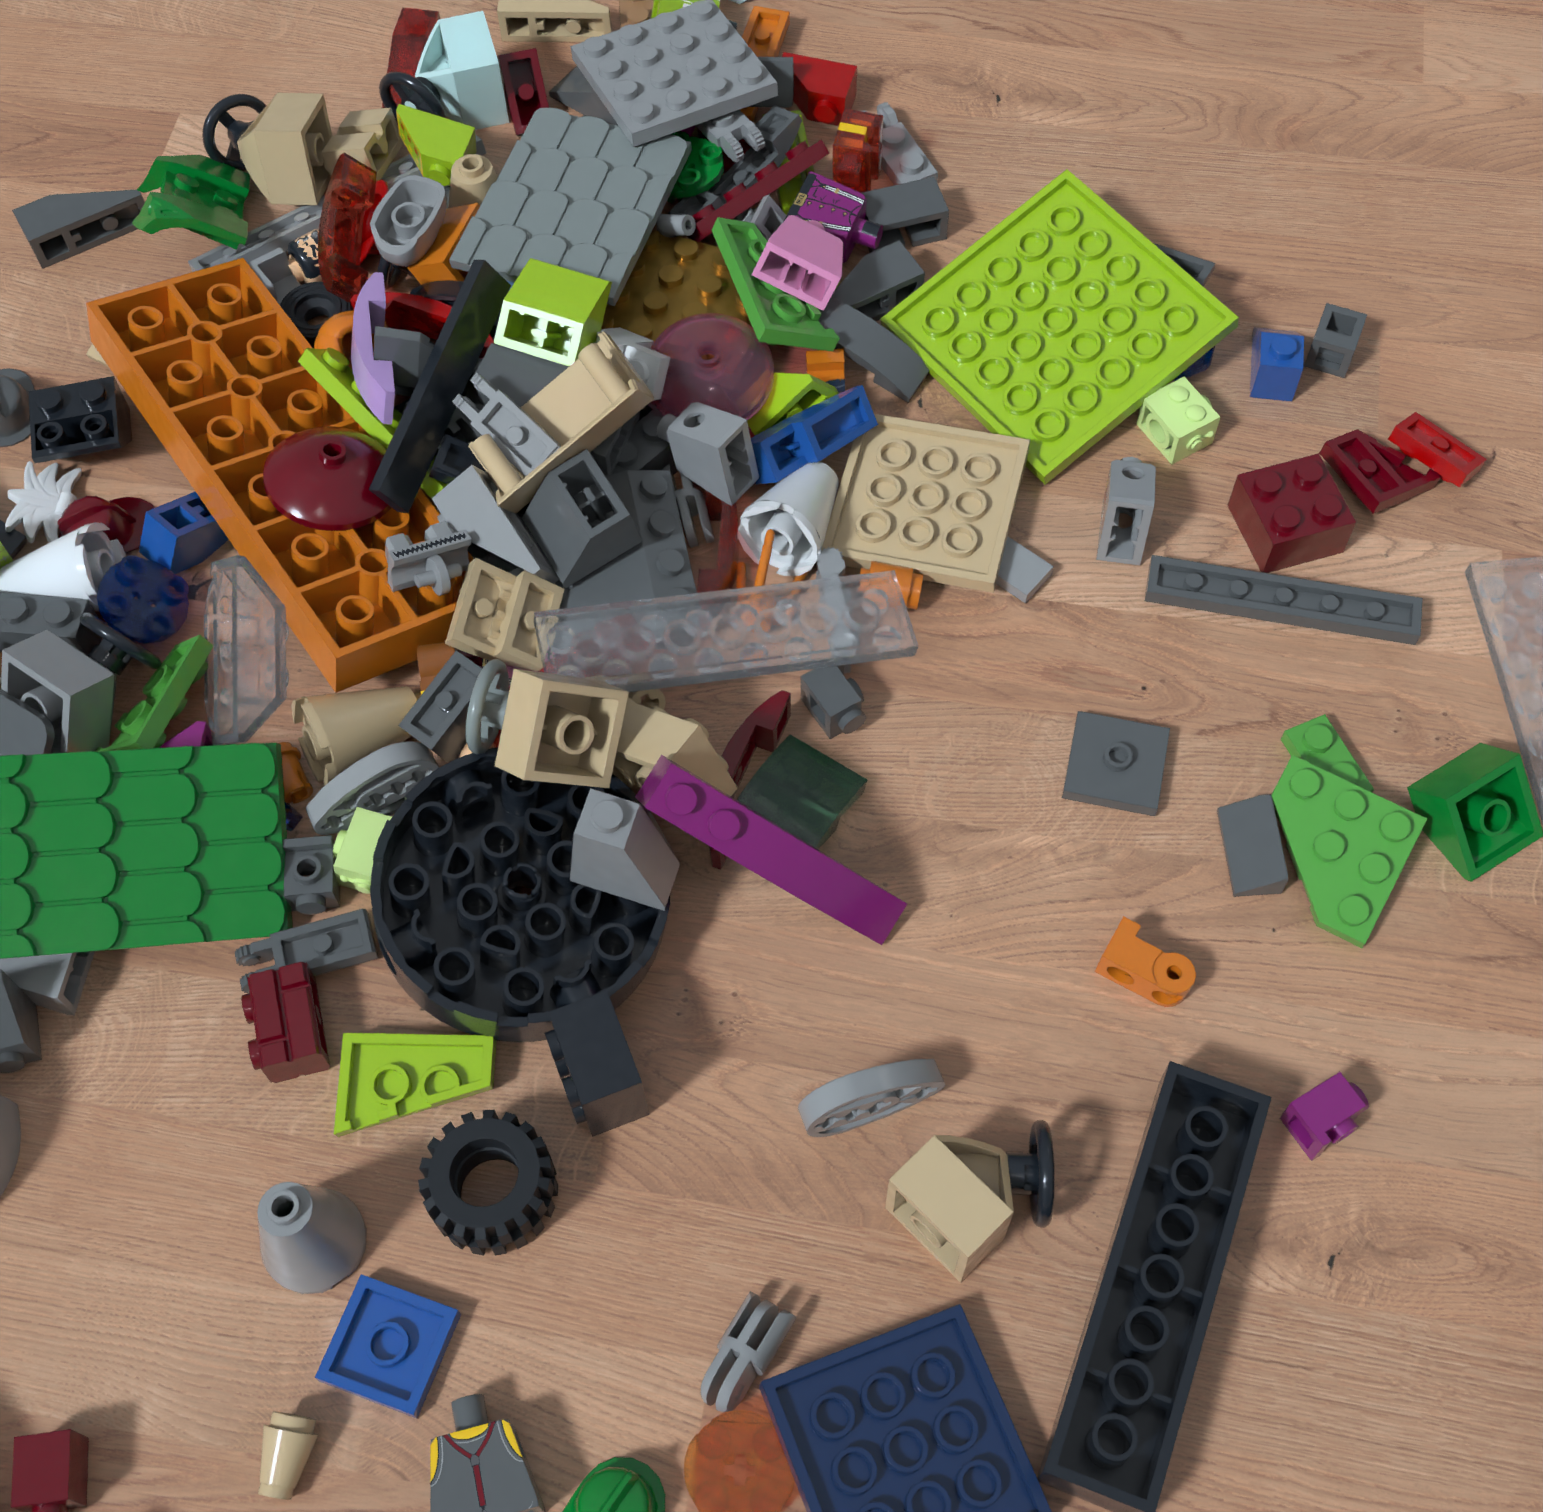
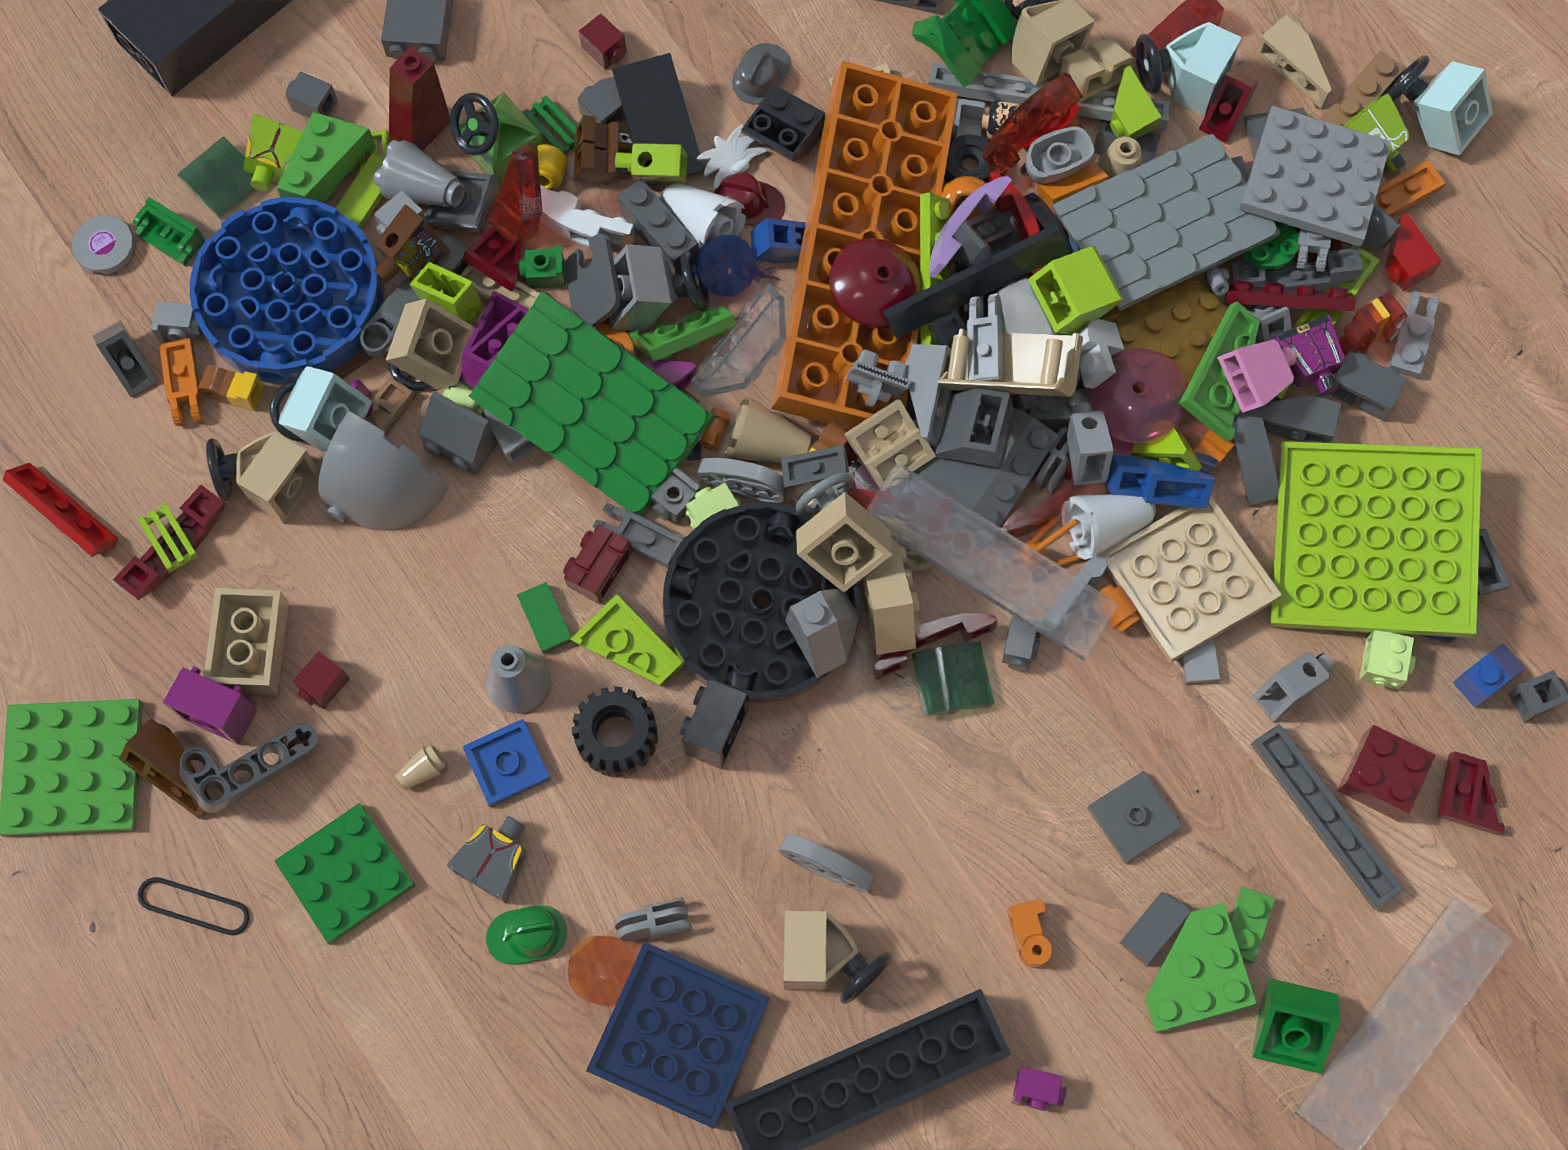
camera: 45 degrees right, 10 degrees up
(278, 1139) = (544, 617): none -> green tile
(769, 850) = (890, 696): magenta slope -> none
(1436, 449) = (1520, 815): red plate -> none

